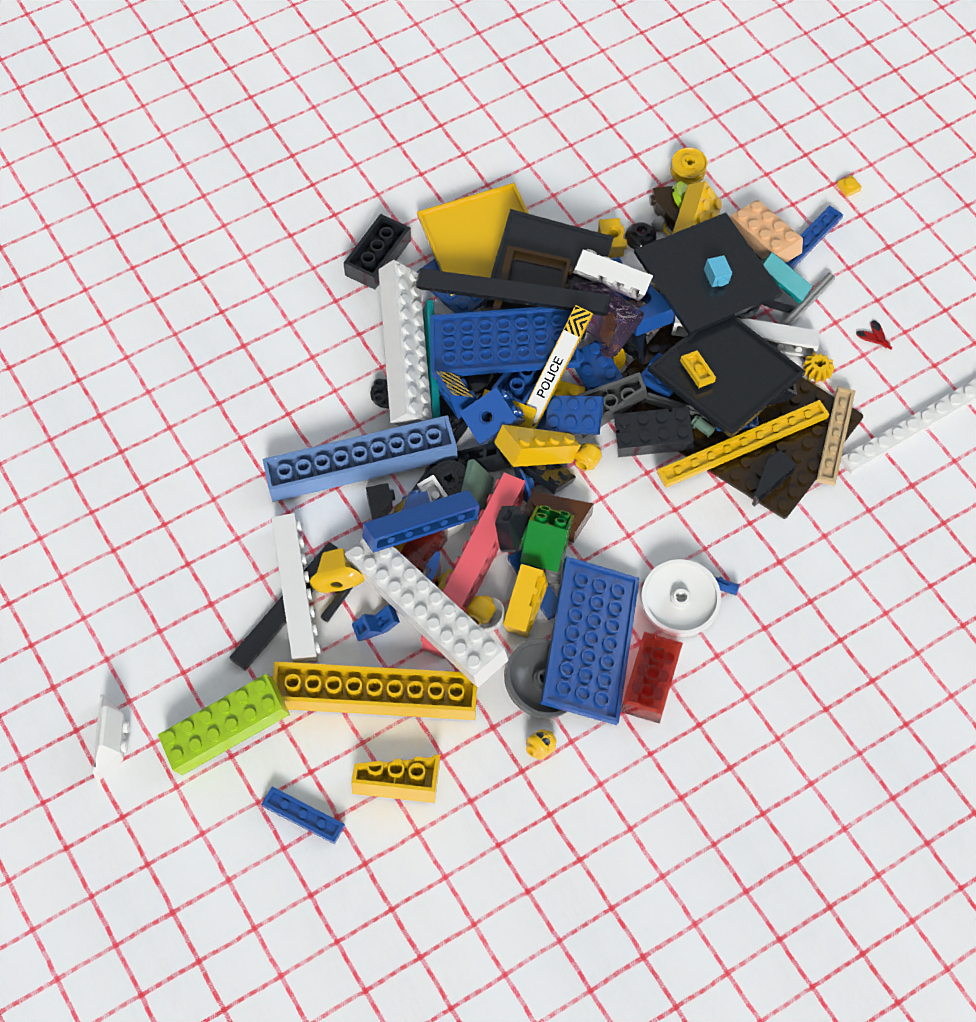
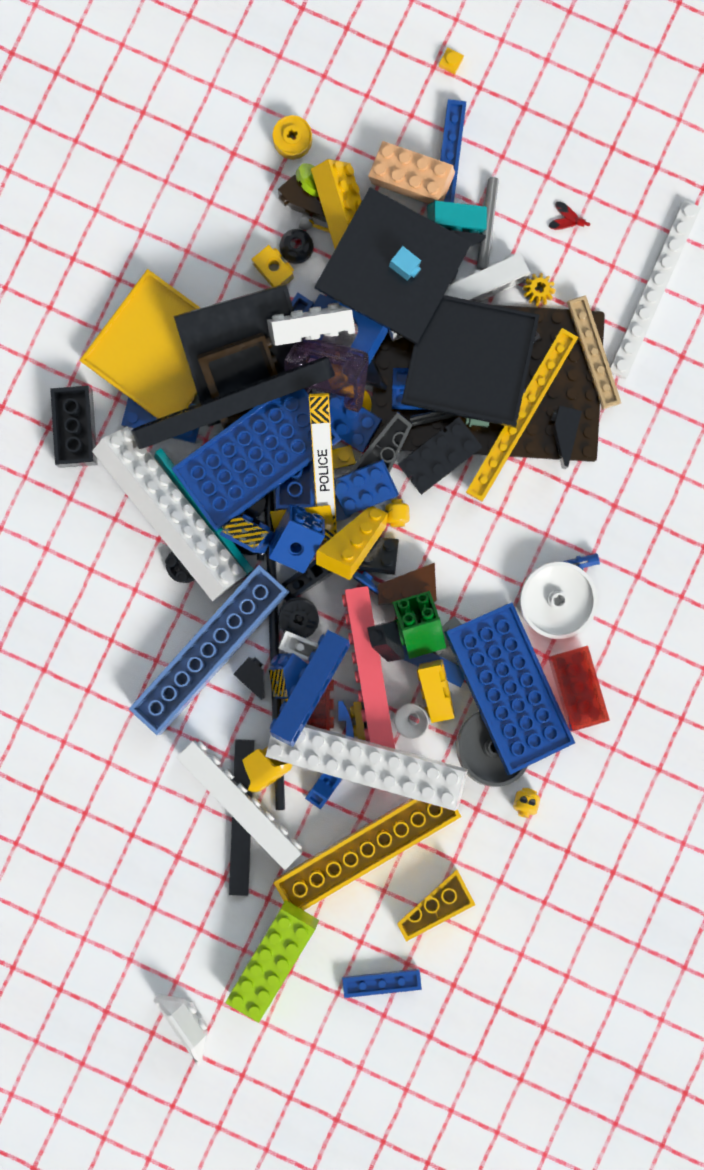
camera: 30 degrees left, 25 degrees up
(478, 483) = (325, 608): sand green tile -> none
(481, 609) = (407, 725): yellow head -> none
(698, 369) = (447, 378): yellow plate -> none

